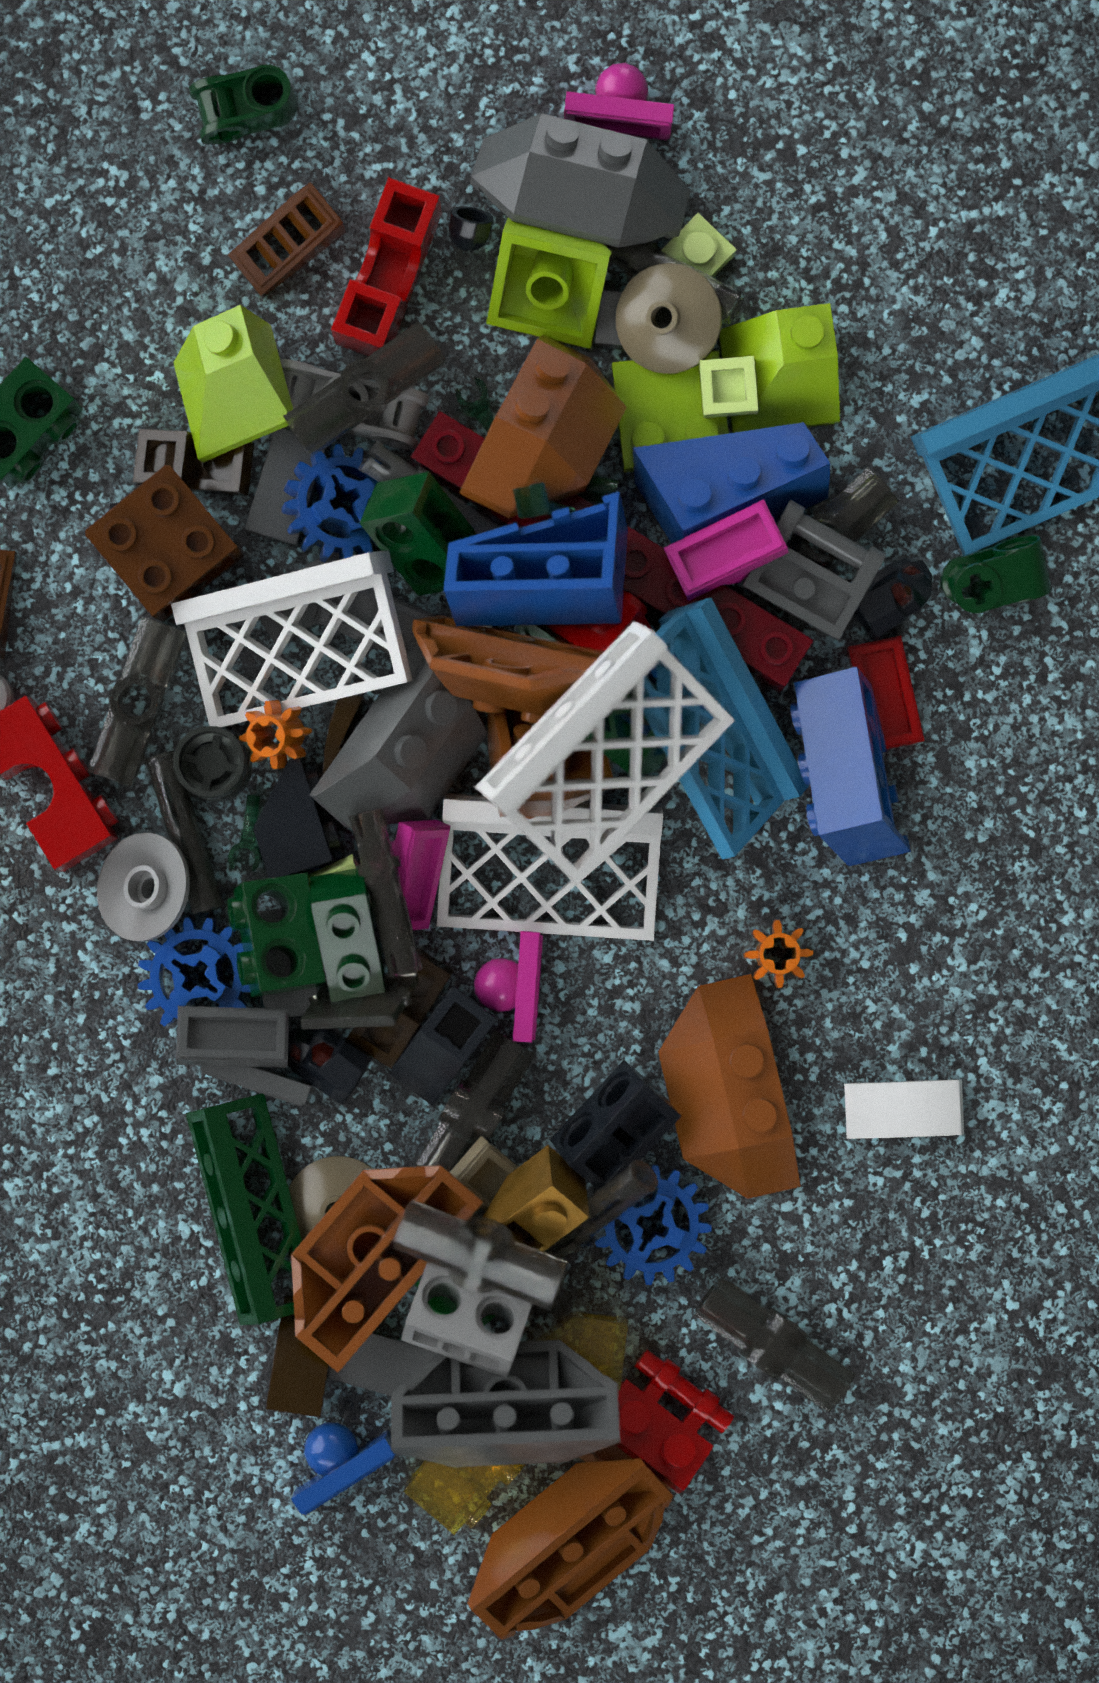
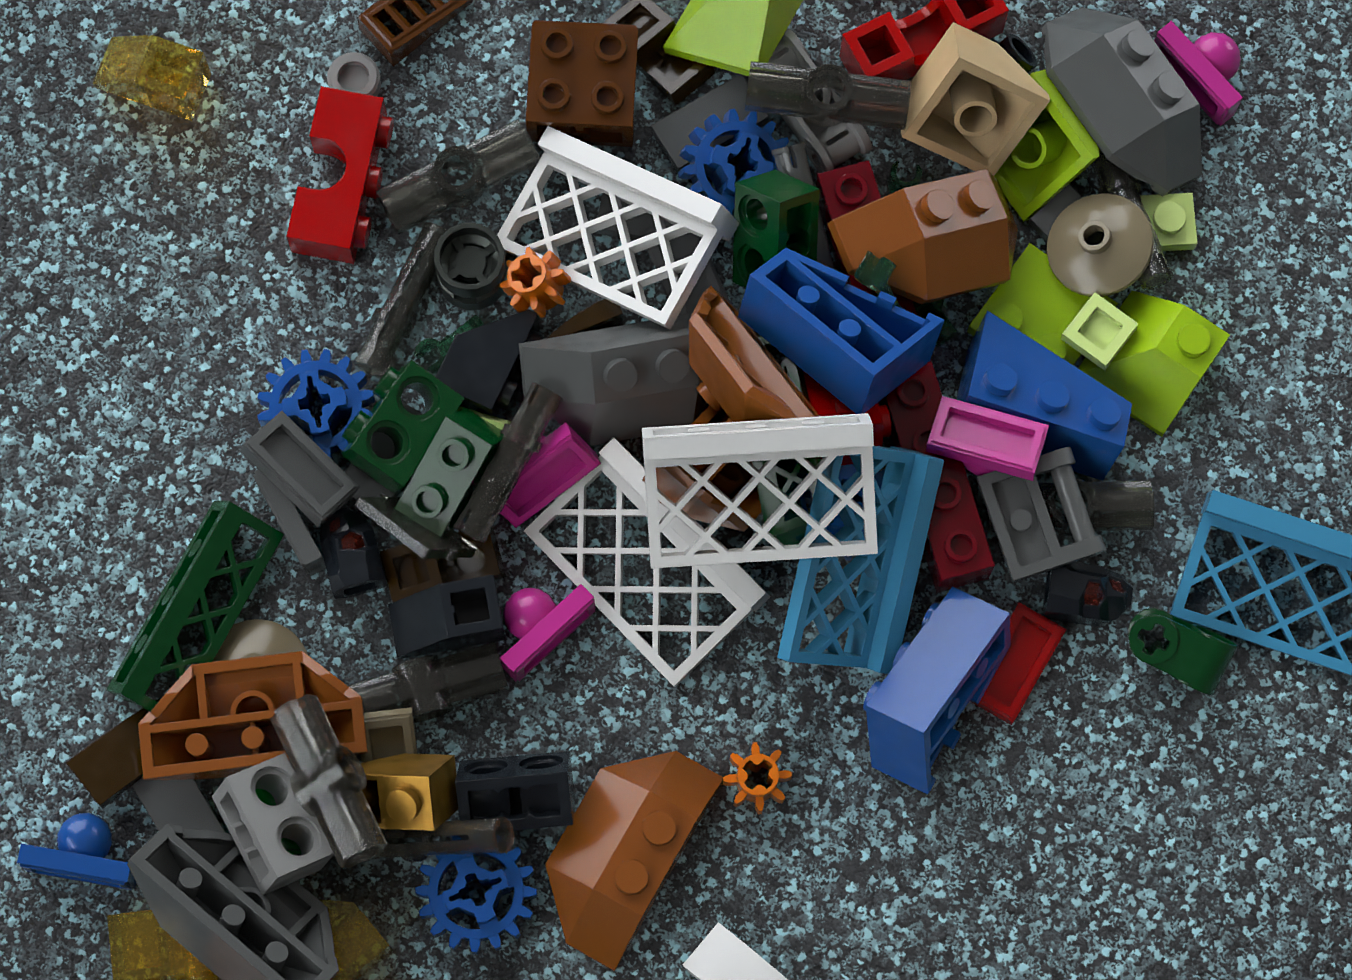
camera: 40 degrees right, 10 degrees down
(127, 885) = (338, 309): light grey dish -> none
(475, 292) = (972, 101): none -> tan slope

